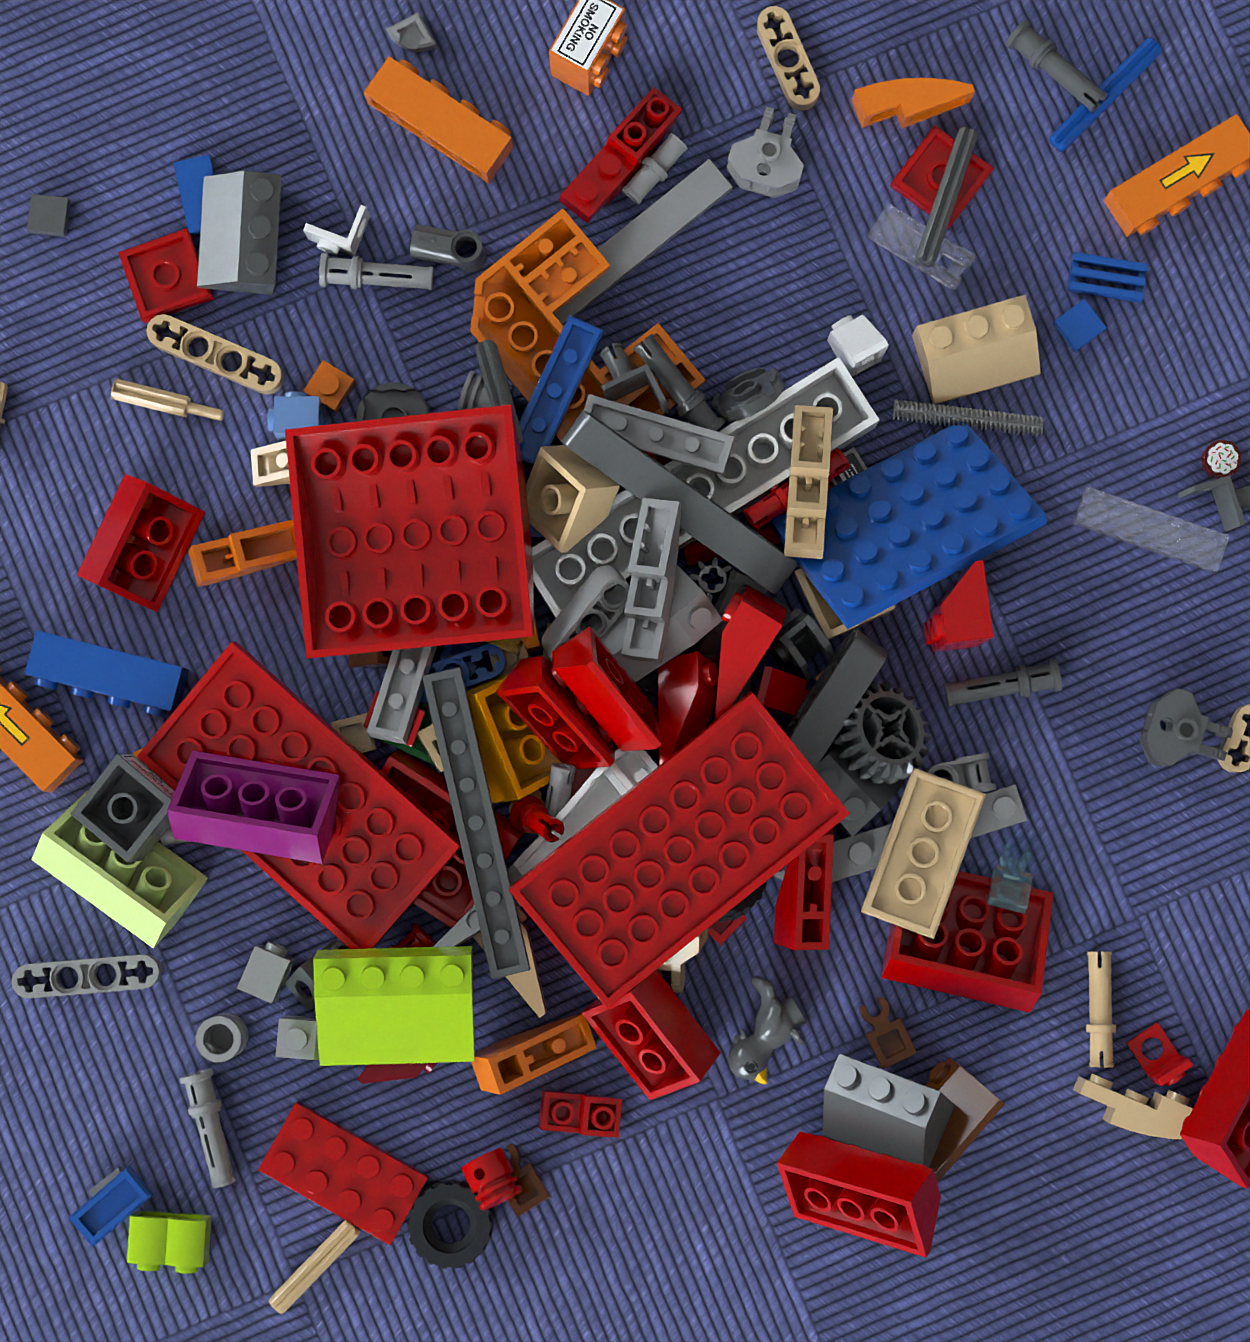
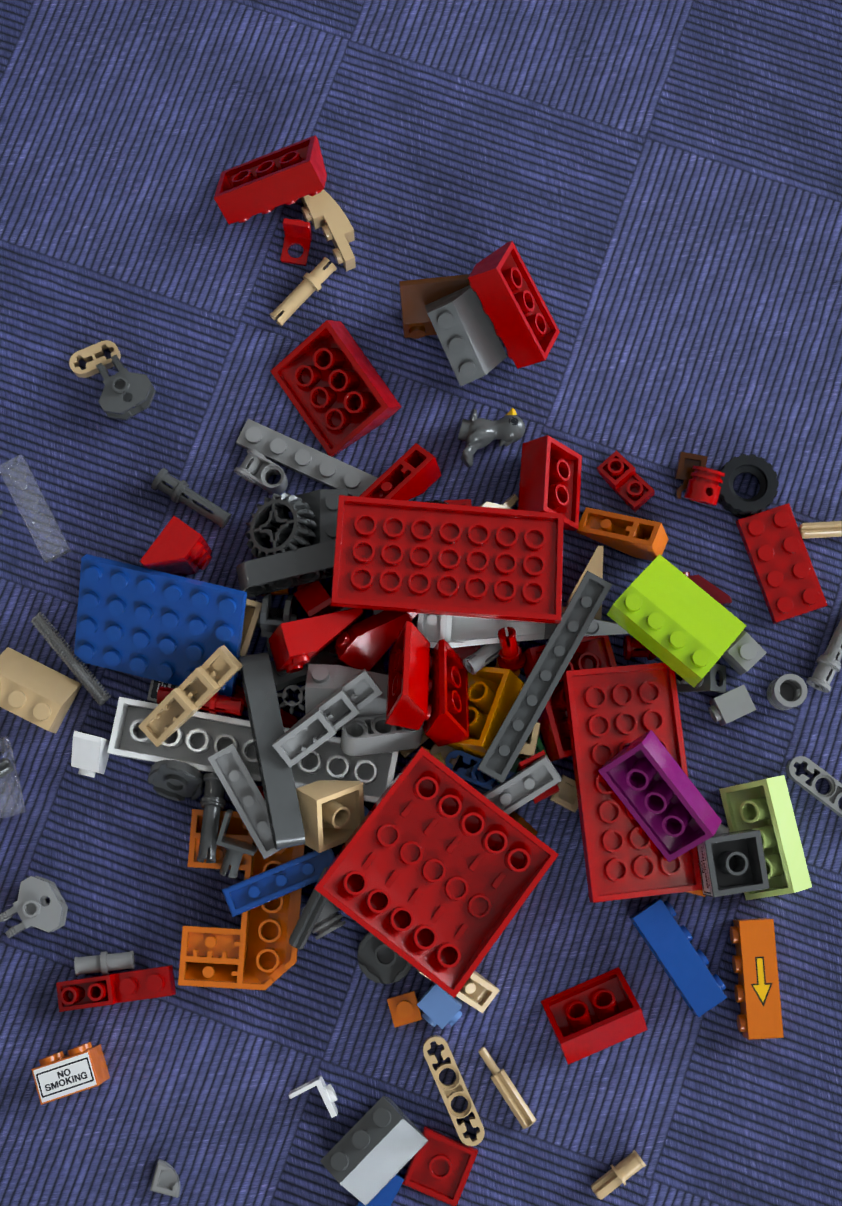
camera: 145 degrees left, 5 degrees down
(243, 553) = (538, 954): orange slope -> none
(421, 276) = (294, 1025): light grey pin -> none
(439, 119) = (198, 1111): orange brick -> none
(445, 245) = (265, 1029): dark grey piece -> none
(652, 231) = (137, 927): light grey tile -> none
(888, 1038) = (426, 374): reddish brown plate -> none
(923, 853) = (319, 446): tan tile -> none
(1009, 884) = (288, 394): clear light blue plate -> none

